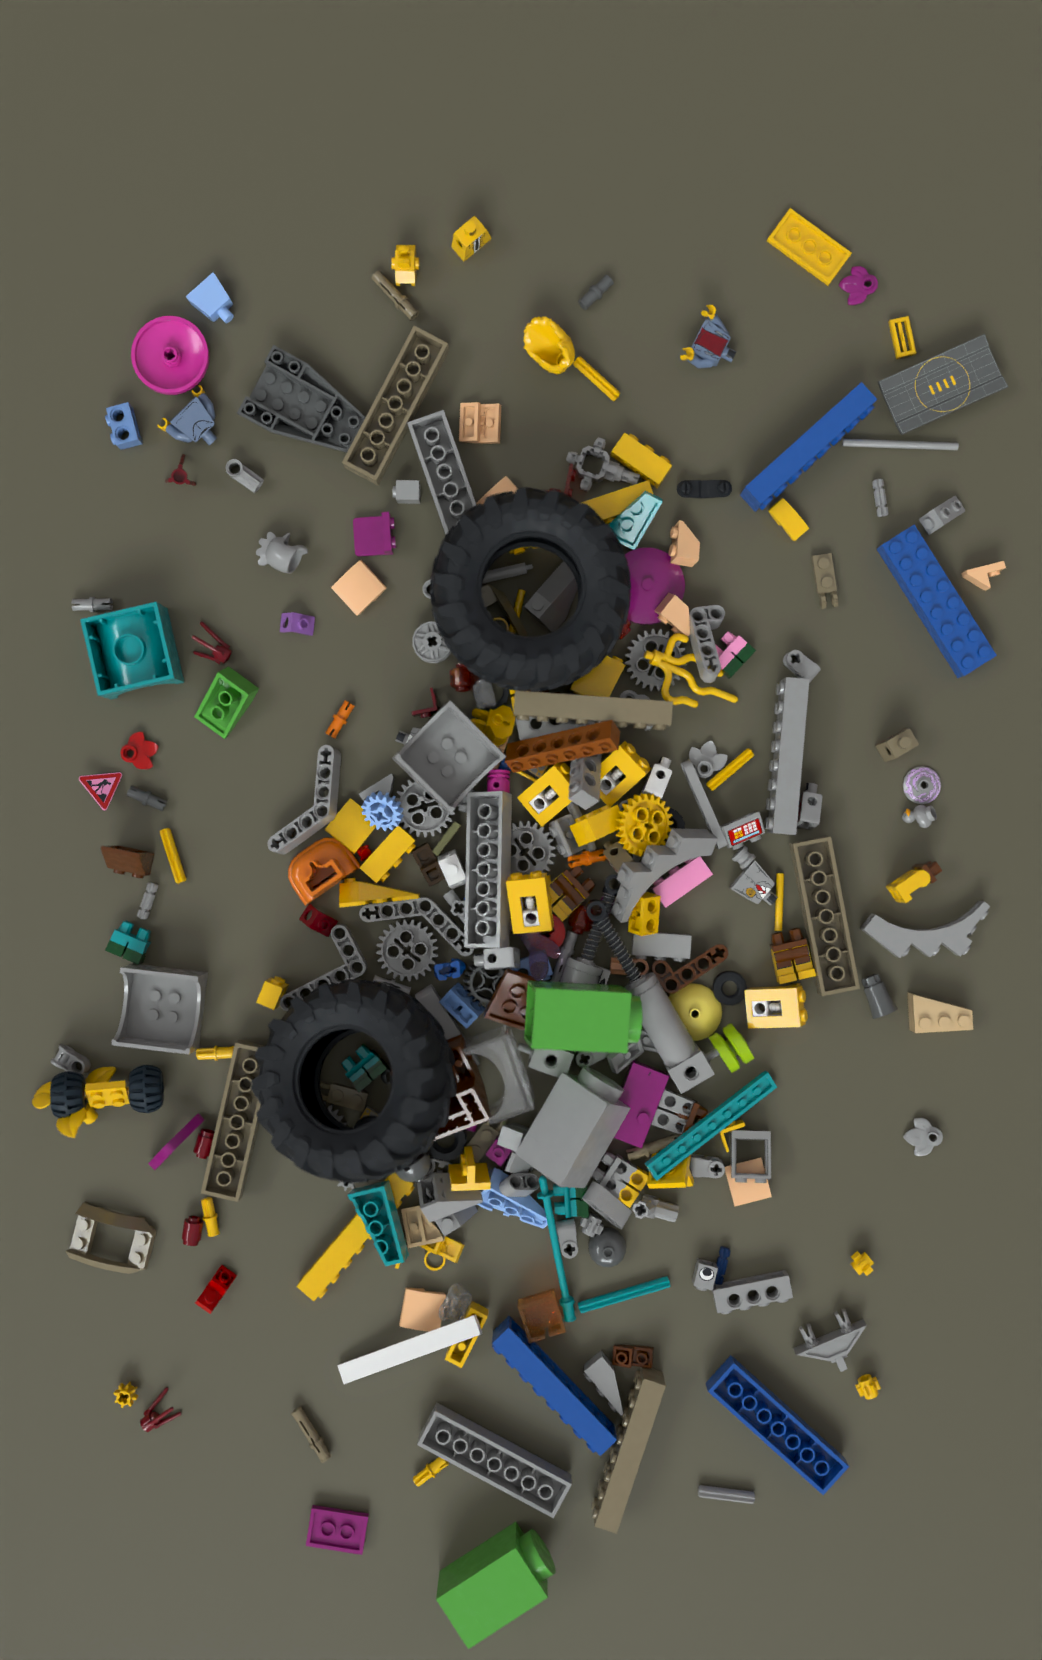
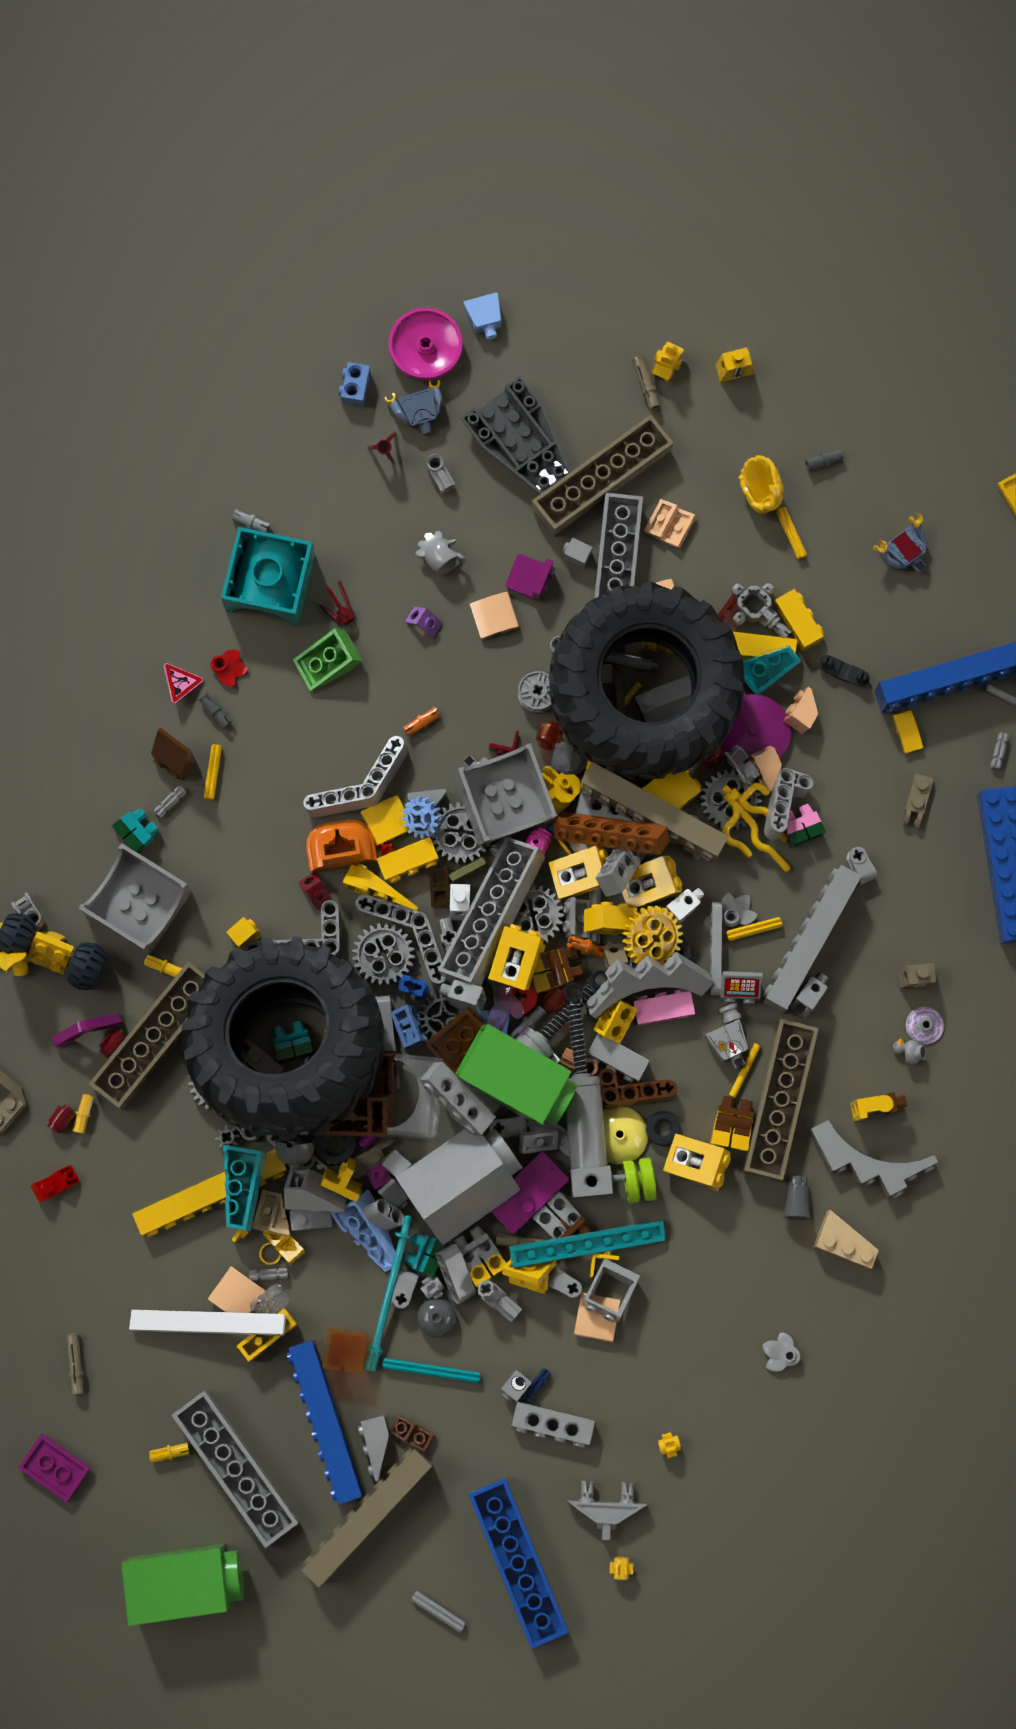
camera: 20 degrees right, 10 degrees down
(442, 1278) = (268, 1274): none -> light grey axle
(567, 1068) = (481, 1115): none -> light grey brick
(660, 628) = (745, 771): none -> light grey hinge

